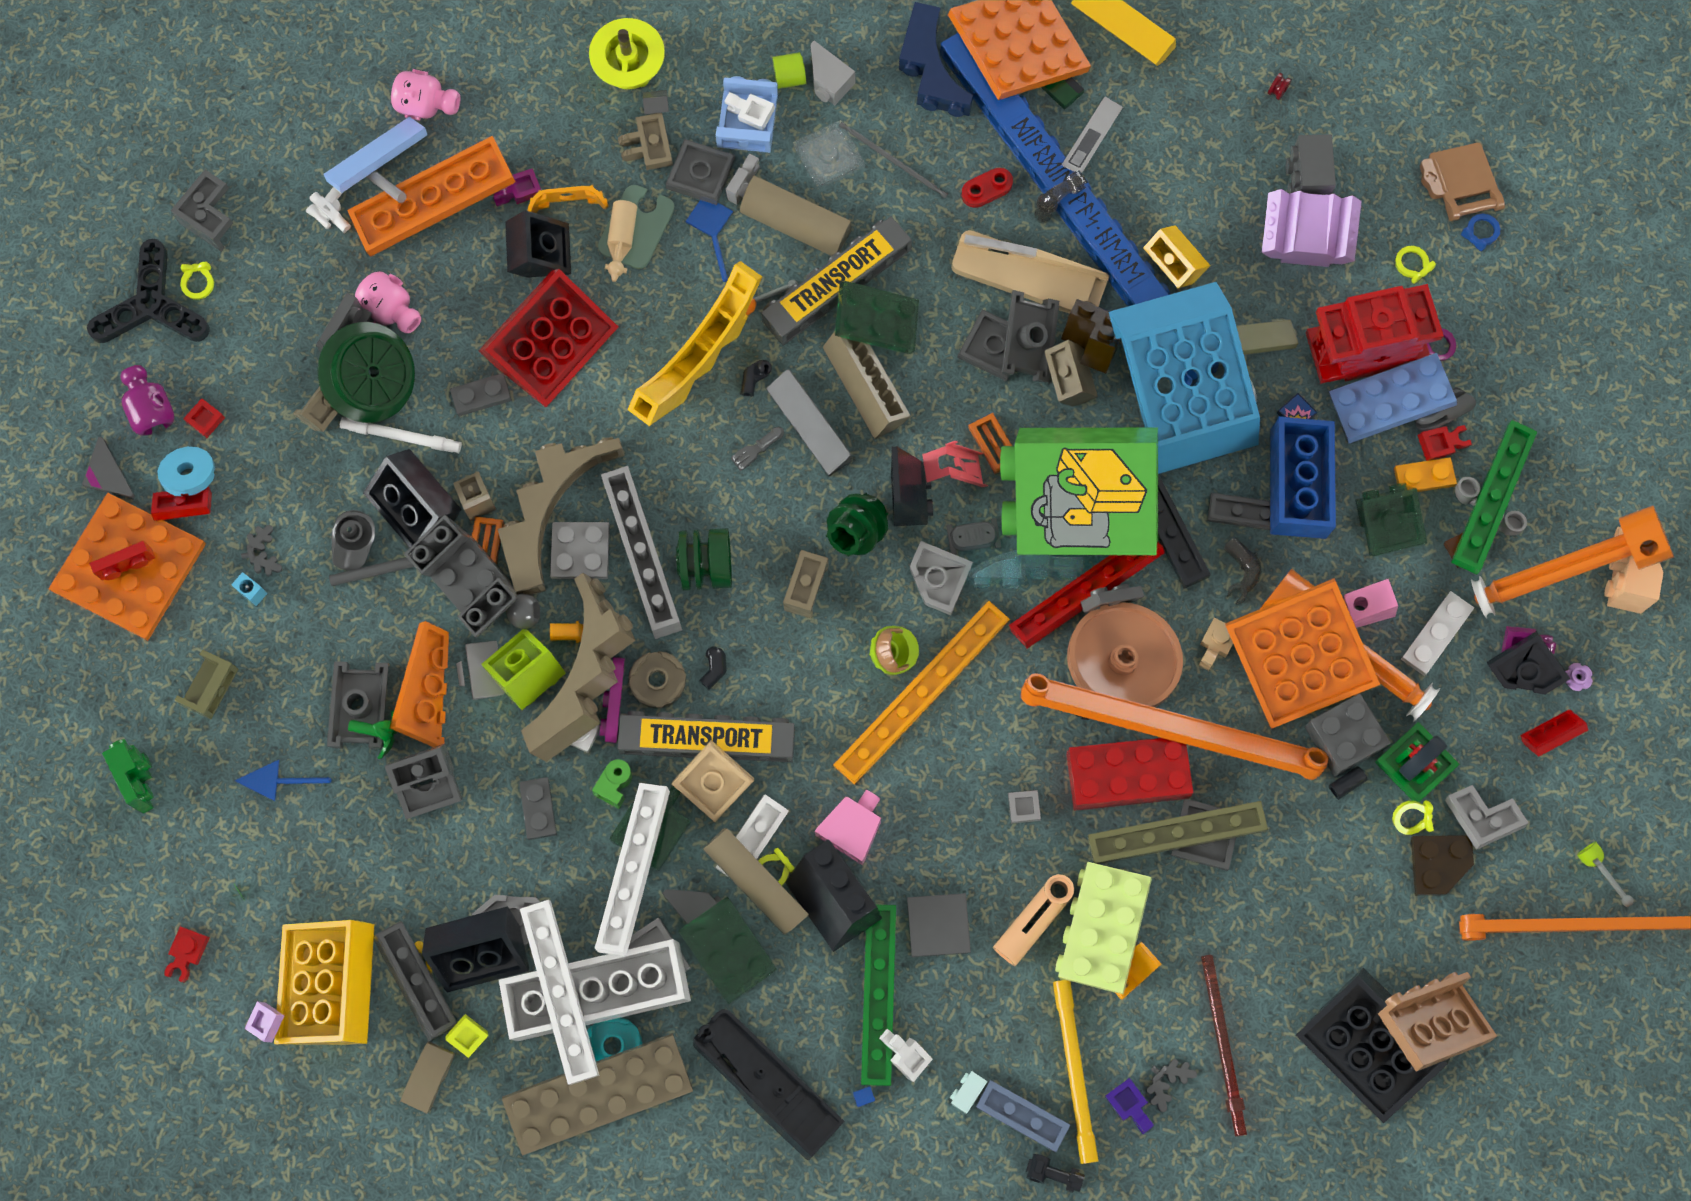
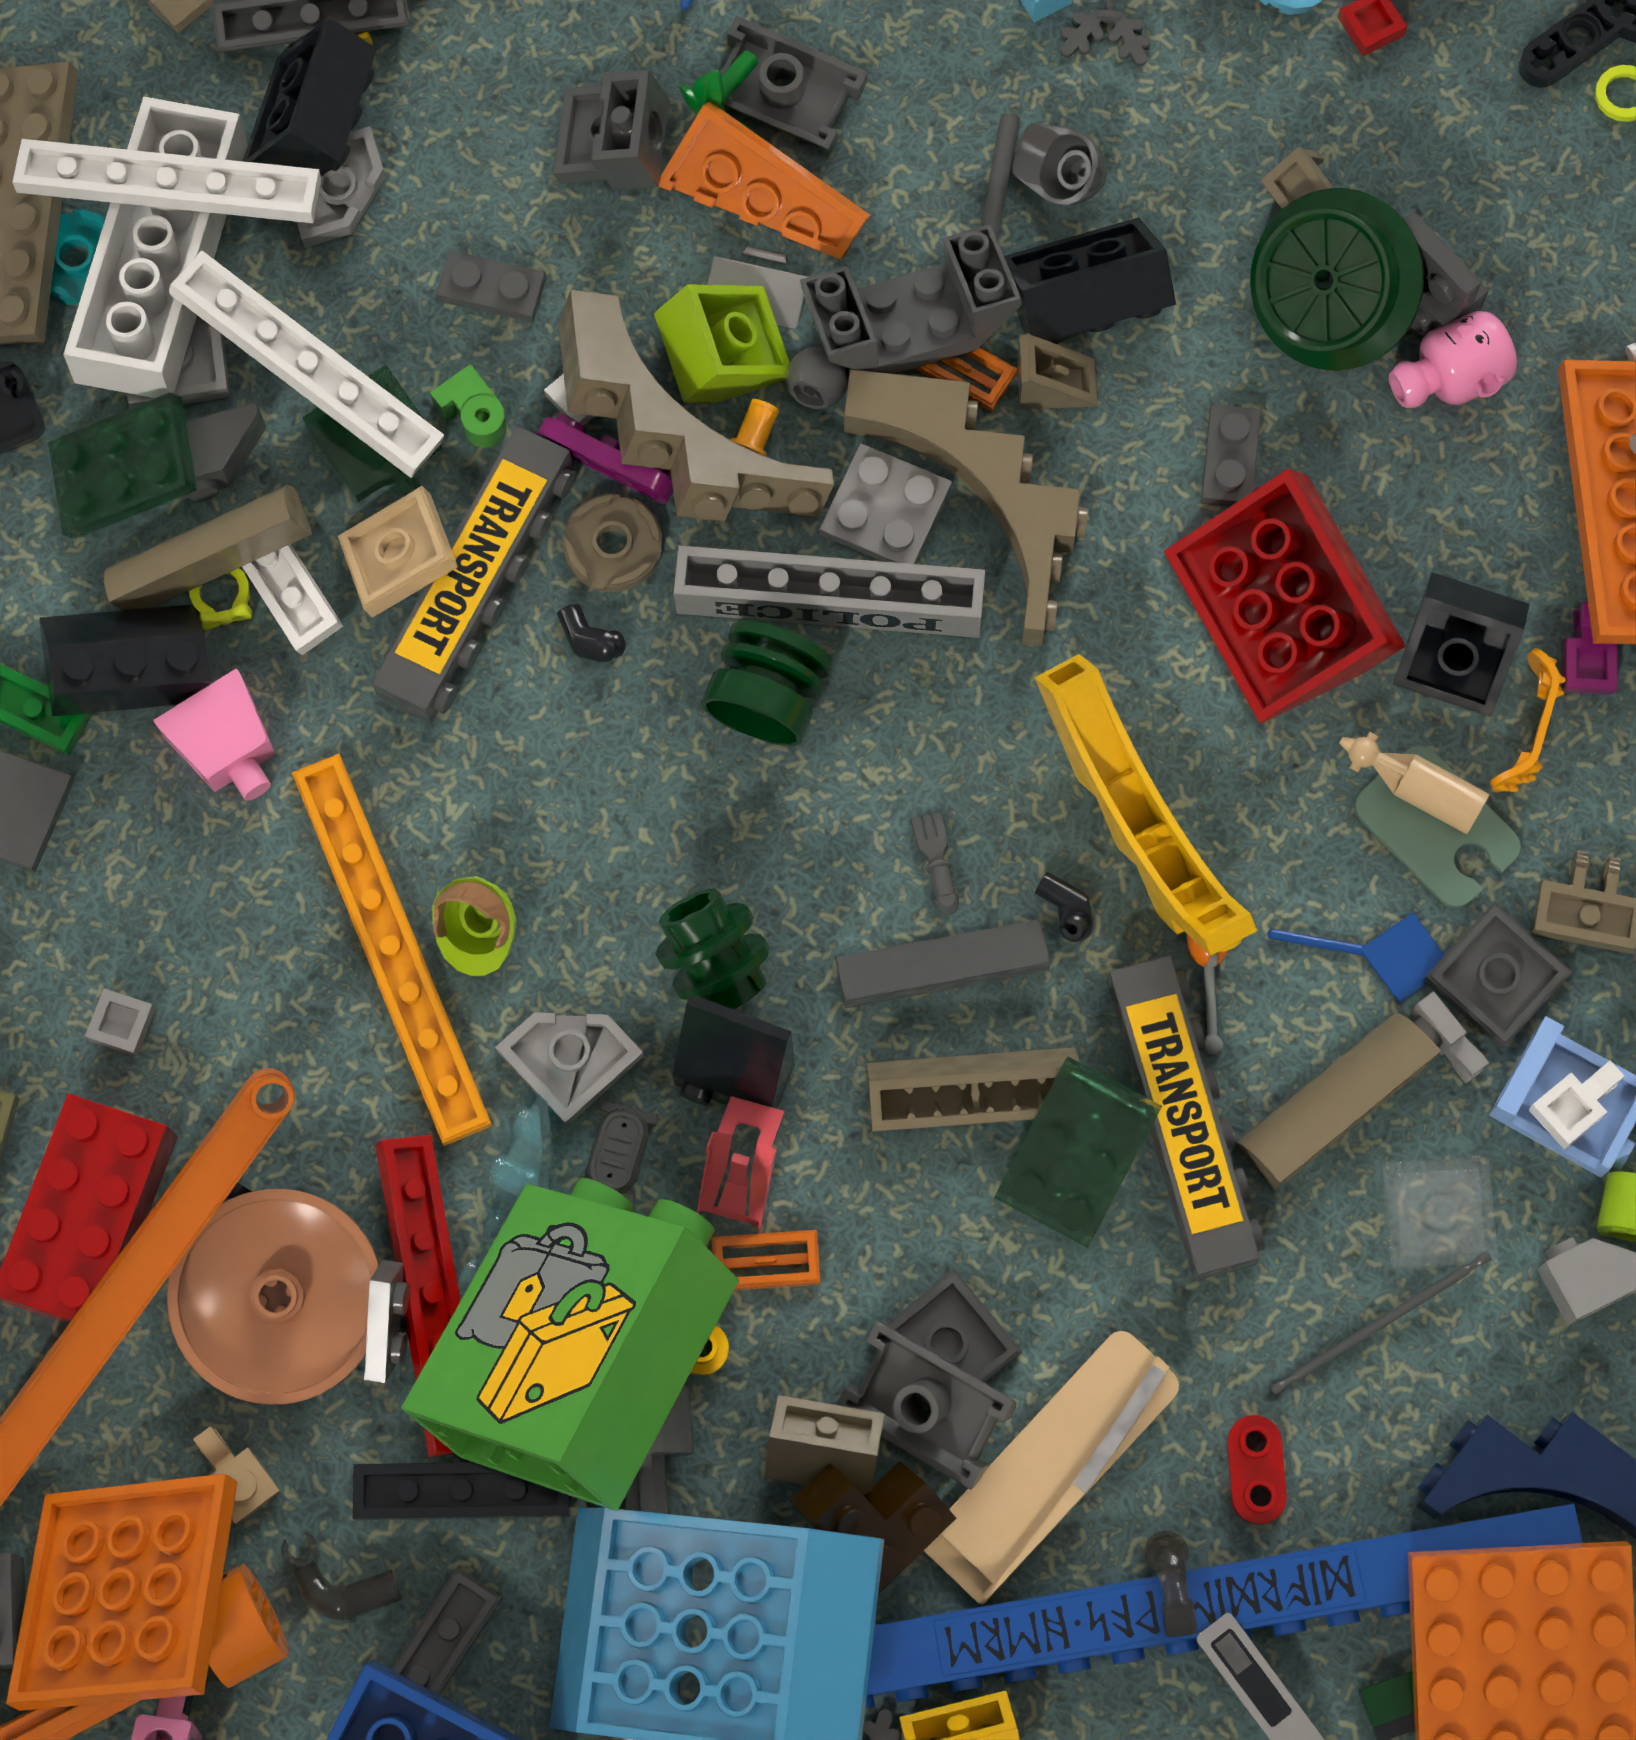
camera: 115 degrees right, 0 degrees up
(434, 442) = (1178, 354): white piece -> none
(466, 1035) = (193, 56): neon yellow plate -> none
(805, 583) = (655, 830): dark tan panel -> none

